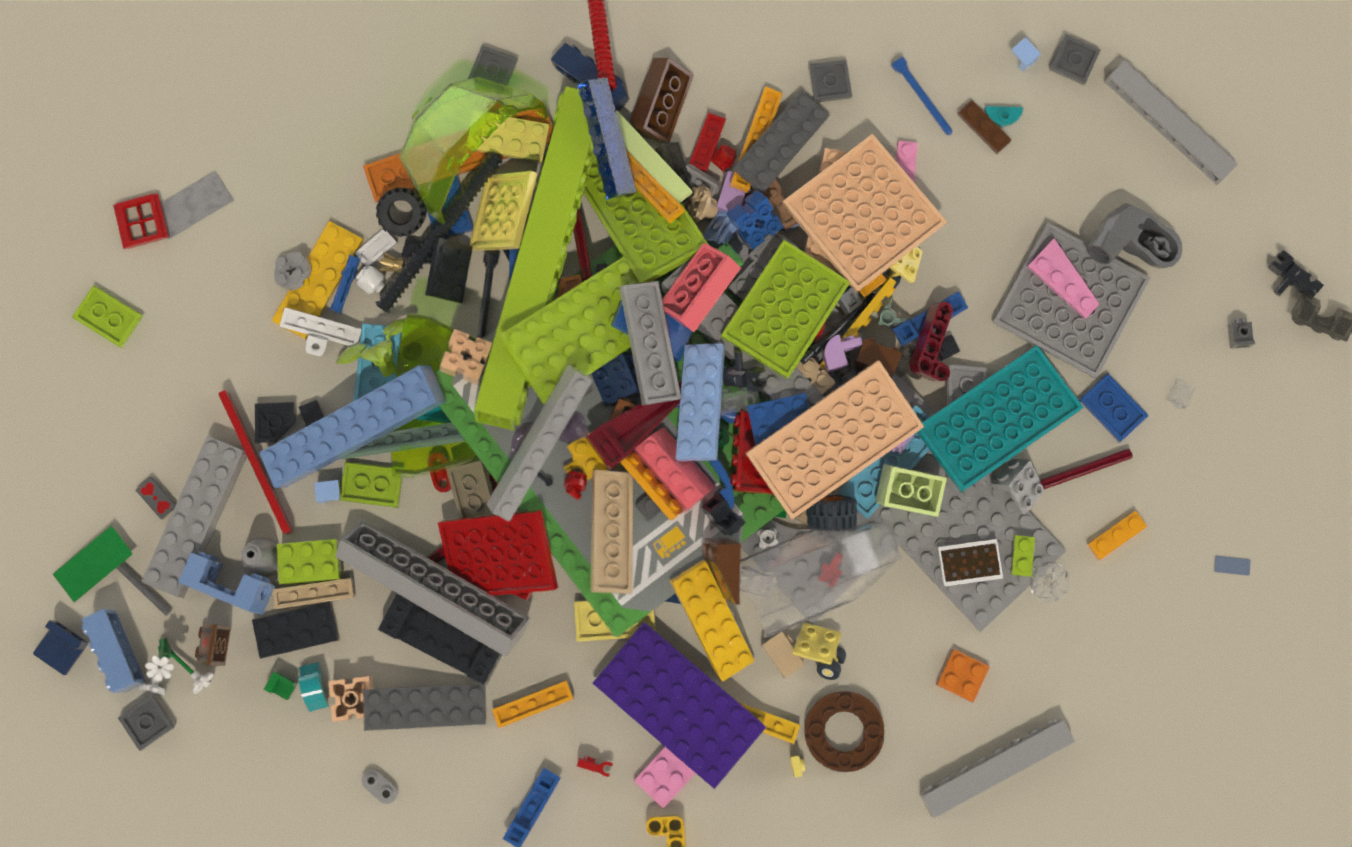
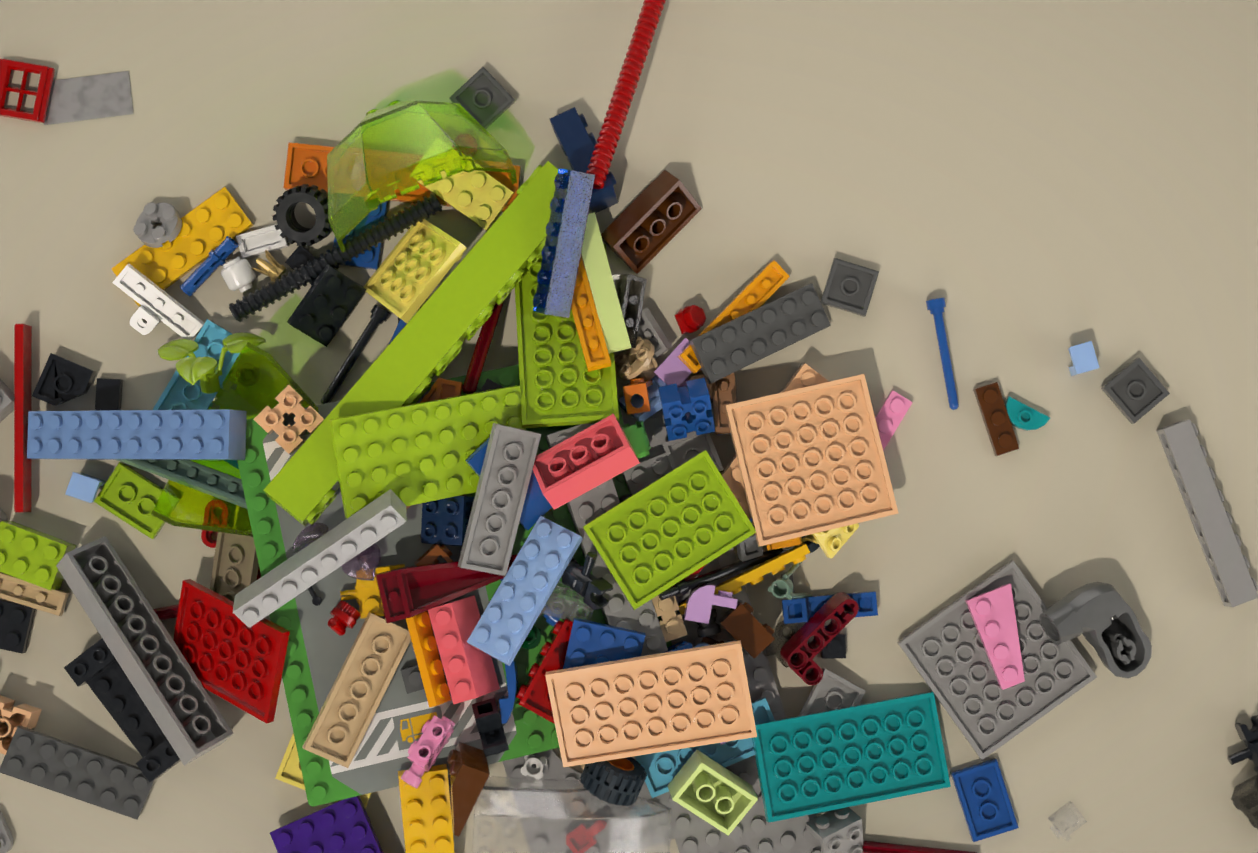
camera: 30 degrees right, 5 degrees up
(532, 704) = (197, 822): light orange plate -> none
(684, 551) = (430, 745): none -> bright pink brick
(707, 142) = (680, 293): red plate -> none
(708, 222) = (637, 386): none -> orange bracket
(1237, 339) = (1159, 783): dark grey brick -> none

